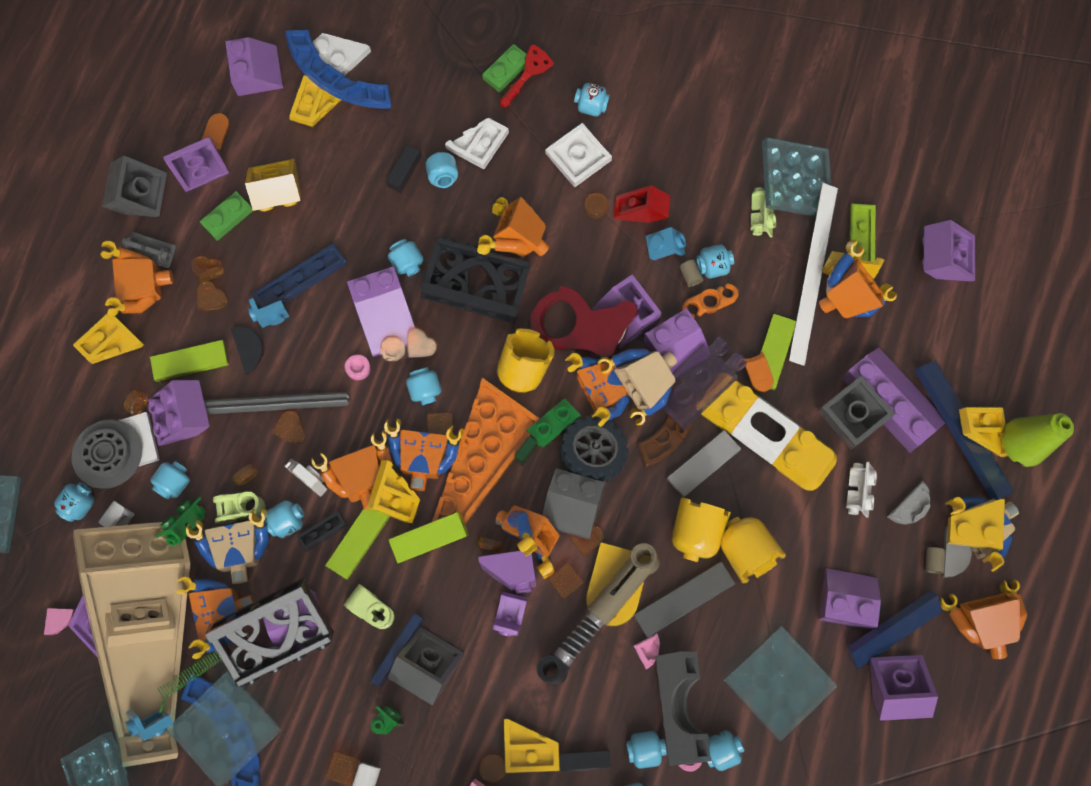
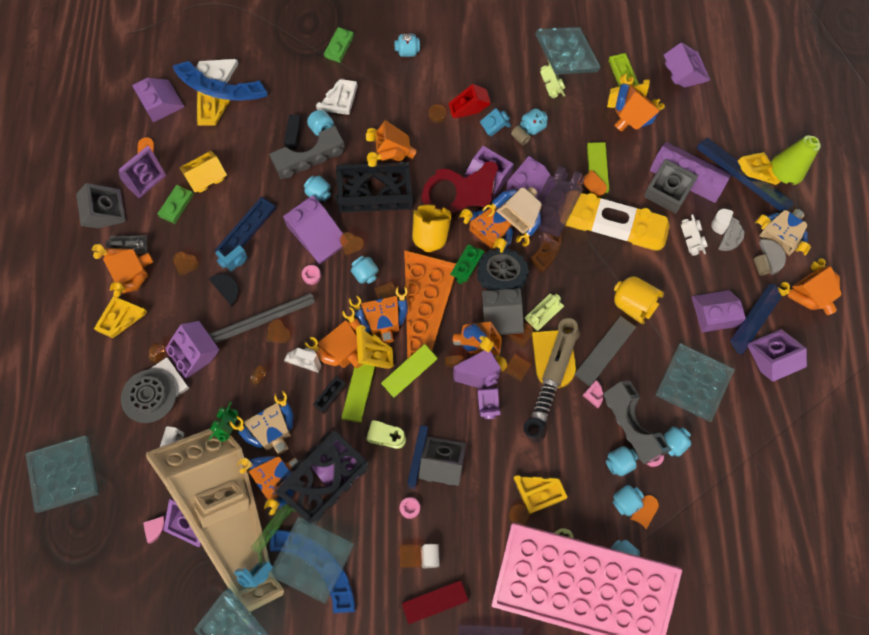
camera: 20 degrees left, 5 degrees down
(74, 502) = (136, 438): medium azure head -> none
(170, 480) = (203, 398): medium azure head -> none
(189, 361) = (185, 311): lime tile -> none
(206, 269) = (174, 244): clear orange tile -> none
(232, 507) = (259, 399): yellowish green piece -> none
(284, 519) = (299, 395): medium azure head -> none
(364, 708) = (410, 507): none -> bright pink tile
(385, 720) = (430, 507): green hinge -> none
(392, 348) = (332, 253): clear orange tile -> none
(439, 204) = (289, 162): none -> dark grey arch
(525, 451) = (454, 290): dark green tile -> none
(529, 70) = (356, 40): red piece -> none
(578, 155) = (412, 84): white plate -> none
(585, 761) = (582, 485): black piece -> none
(627, 520) = (544, 311): none -> yellowish green hinge
(699, 529) = (597, 297): yellow cylinder -> none
(703, 464) = (581, 256): light grey tile -> none
(722, 301) = (548, 146): orange piece -> none
(813, 274) = (603, 108): white sticker -> none
(905, 482) = (721, 221): none -> white brick
(978, 527) = (783, 230): yellow wing -> none

